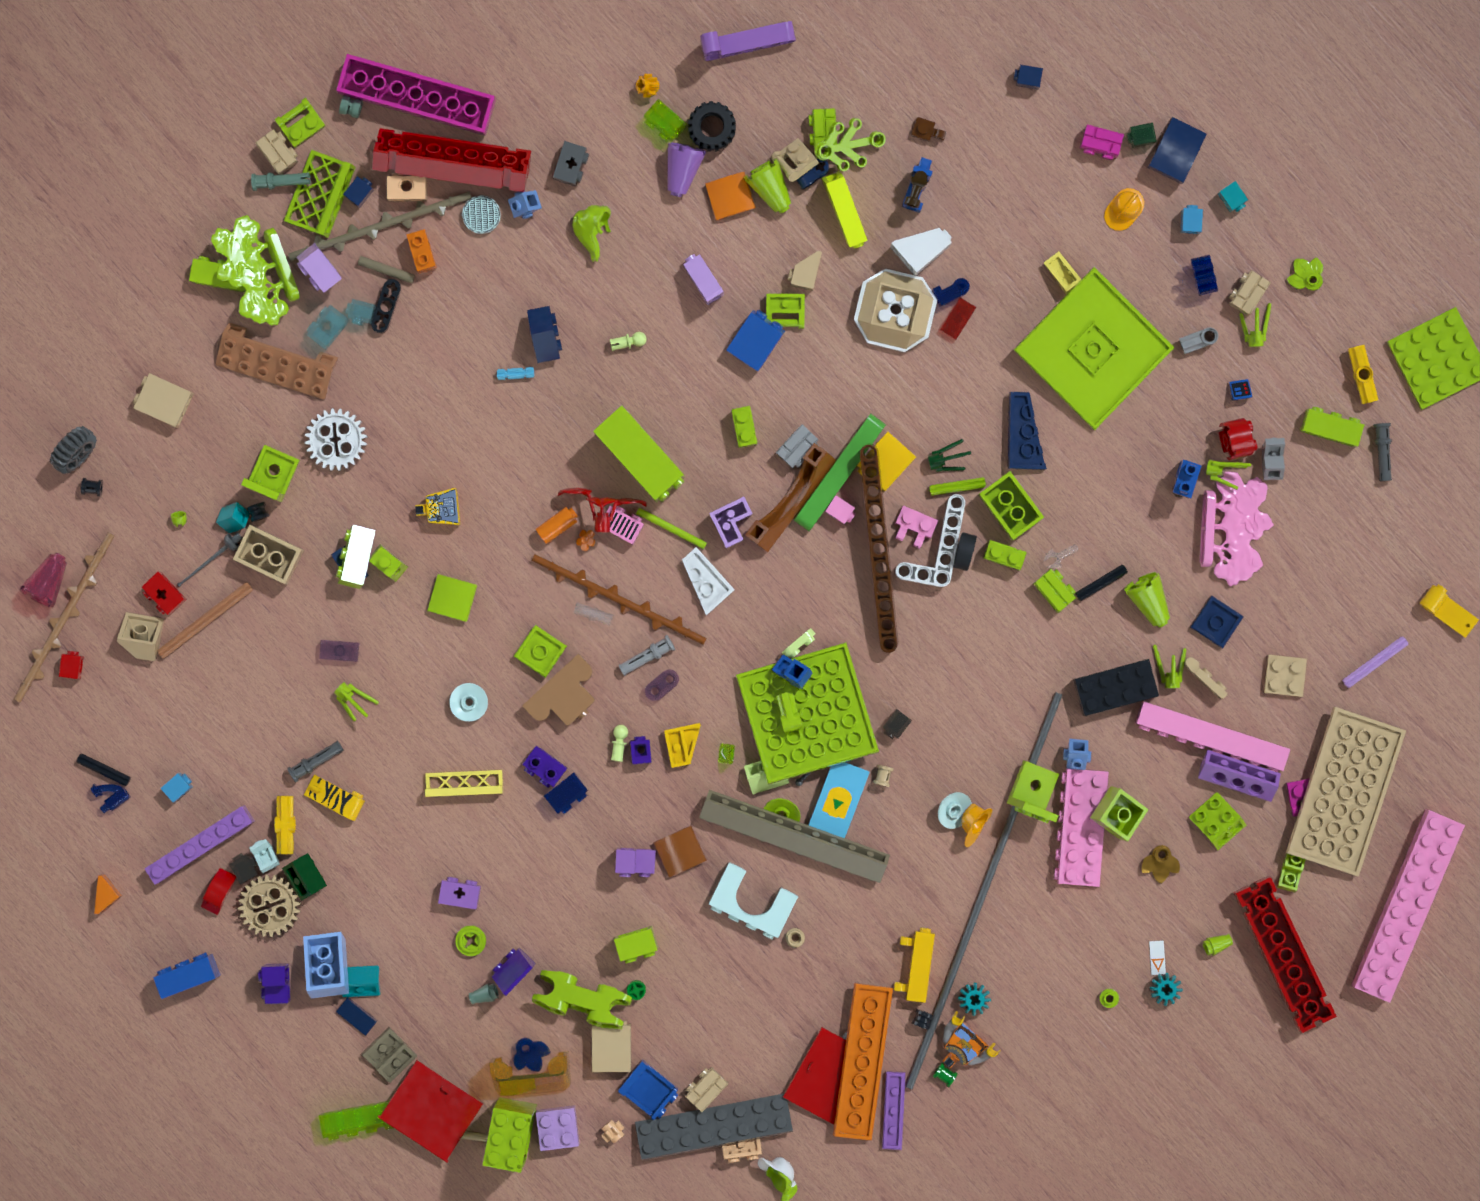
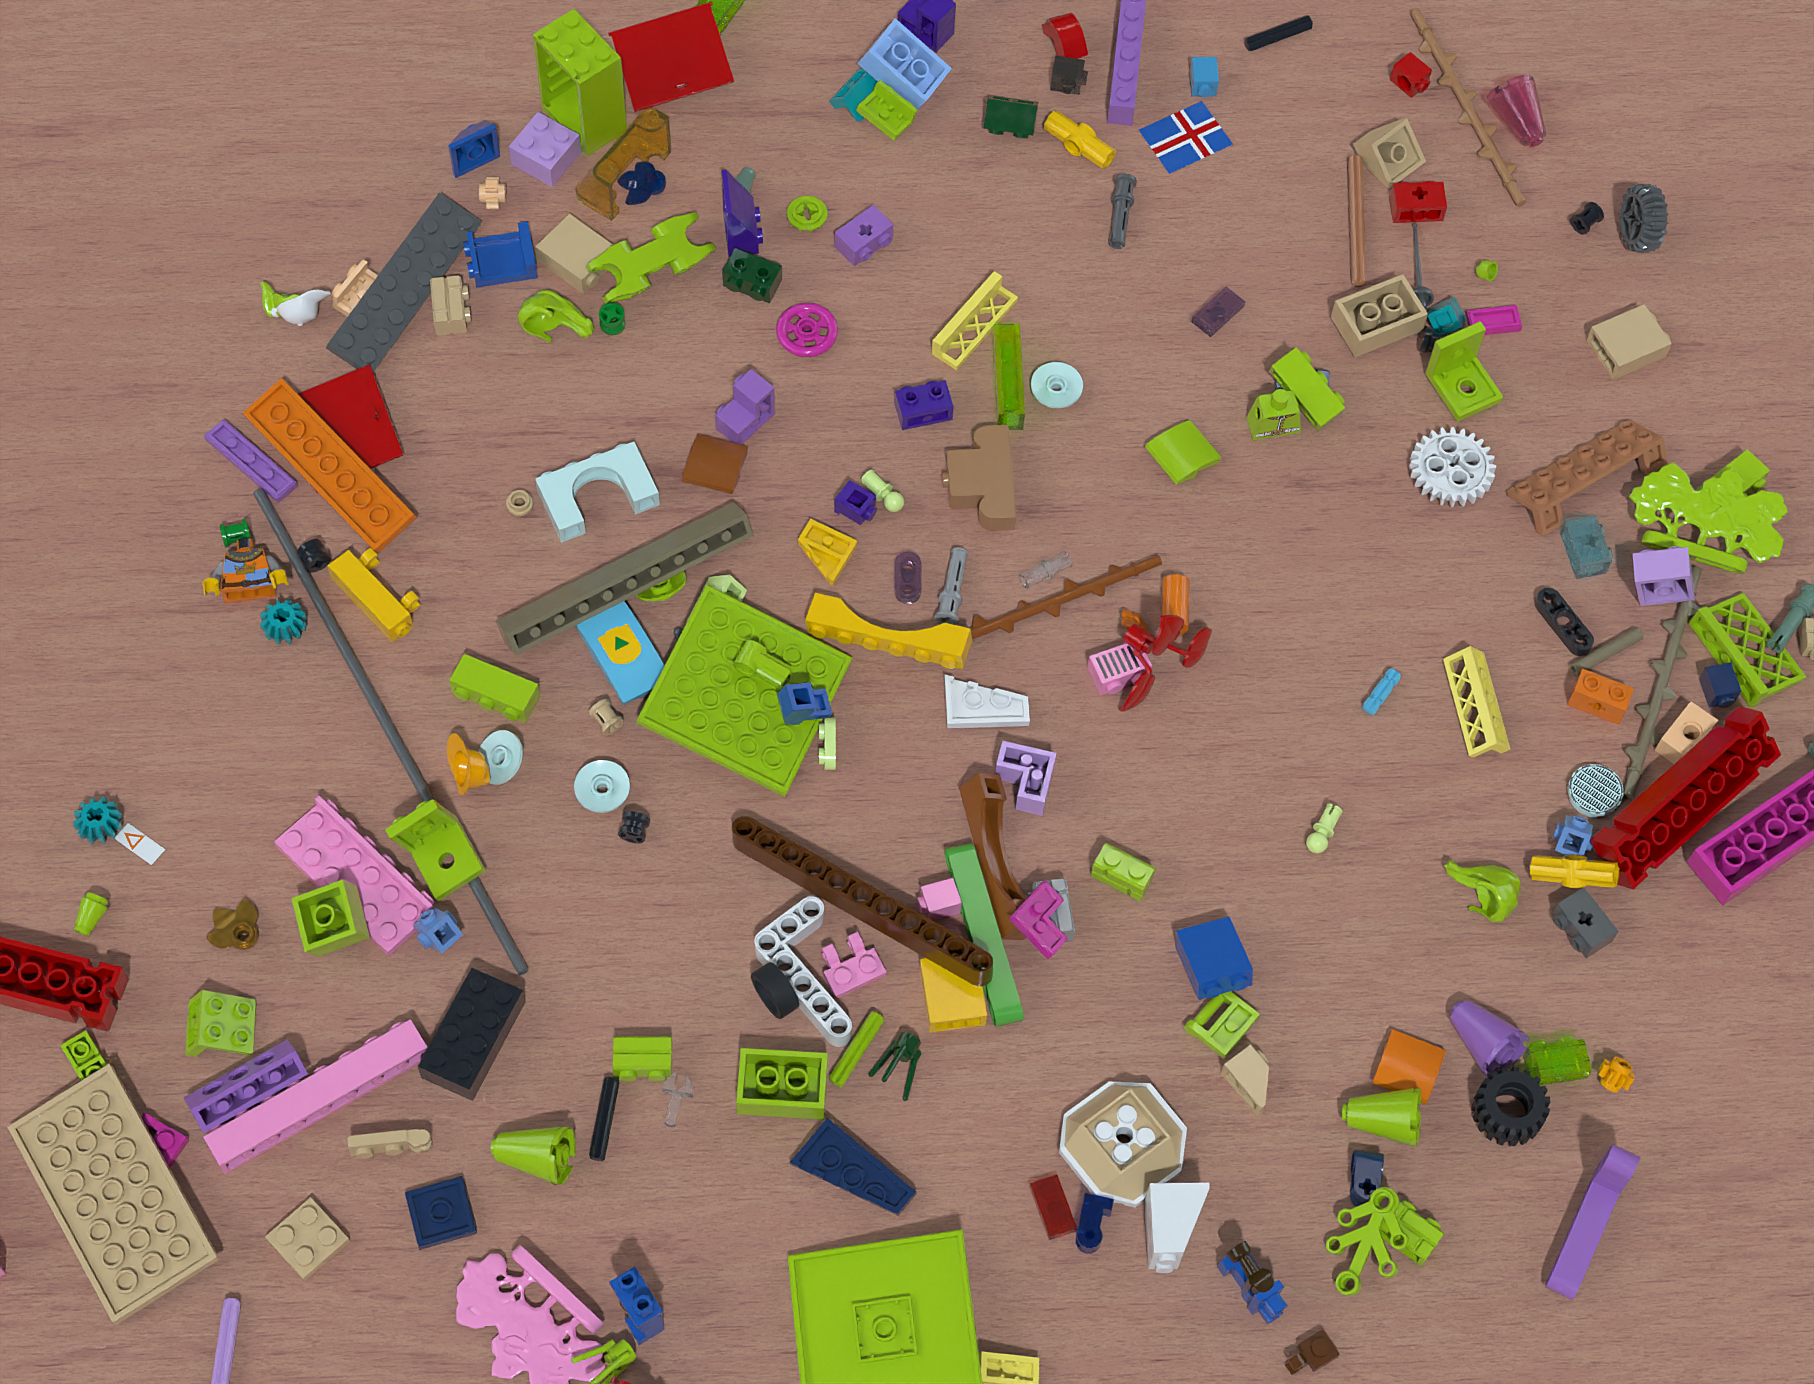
camera: 125 degrees right, 25 degrees down
(115, 800) = (1238, 20): clear blue plant -> none
(210, 490) = (1496, 319): none -> dark pink tile
(226, 767) = (1185, 137): none -> sticker
(263, 889) = (990, 63): tan gear -> none
(264, 855) = (1064, 100): light aqua bracket -> none
(335, 798) = (1053, 201): yellow door -> none
(345, 694) = (1167, 284): lime plant -> none
(356, 1016) = (828, 69): dark blue slope -> none
(360, 312) = (1579, 588): clear light blue brick -> none
(362, 952) = (887, 110): none -> lime bracket
(389, 1054) = (762, 67): dark tan slope -> none
(441, 508) = (1289, 510): torso -> none
(477, 313) = (1485, 699): none -> light yellow fence
(488, 732) = (1008, 376): none -> clear neon green brick
(539, 887) = (803, 311): none -> dark pink plate
(540, 651) = (1050, 491): lime plate -> none
(541, 934) = (752, 276): none -> dark green brick
(544, 334) = (1405, 741): dark blue brick -> none
(547, 188) = (1574, 871): none -> yellow piece
(566, 793) = (877, 403): clear blue brick -> none
(591, 1171) = (473, 148): none -> blue slope
(636, 944) = (658, 345): lime brick -> none
(639, 454) = (1184, 731): lime container -> none
(661, 1029) = (549, 310): none -> lime piece
(671, 528) = (1071, 717): lime bar -> none
(703, 278) = (1332, 957): lavender slope -> none
(722, 702) = (941, 644): none -> yellow arch
(726, 753) = (774, 586): clear neon green slope -> none
(799, 156) = (1394, 1174): tan plate -> none
(817, 448) = (1034, 920): none -> dark pink tile
(844, 209) = (1292, 1176): neon yellow slope -> none
(896, 724) = (649, 773): clear smoke brick -> none
(918, 849) = (494, 688): none -> lime brick
(933, 705) = (634, 827): none -> black wheel
(935, 742) = (597, 775): none -> light aqua dish
(1004, 555) = (731, 1033): lime brick -> none
(1105, 993) = (149, 763): lime plate -> none
(1172, 678) = (425, 1105): lime plant -> none

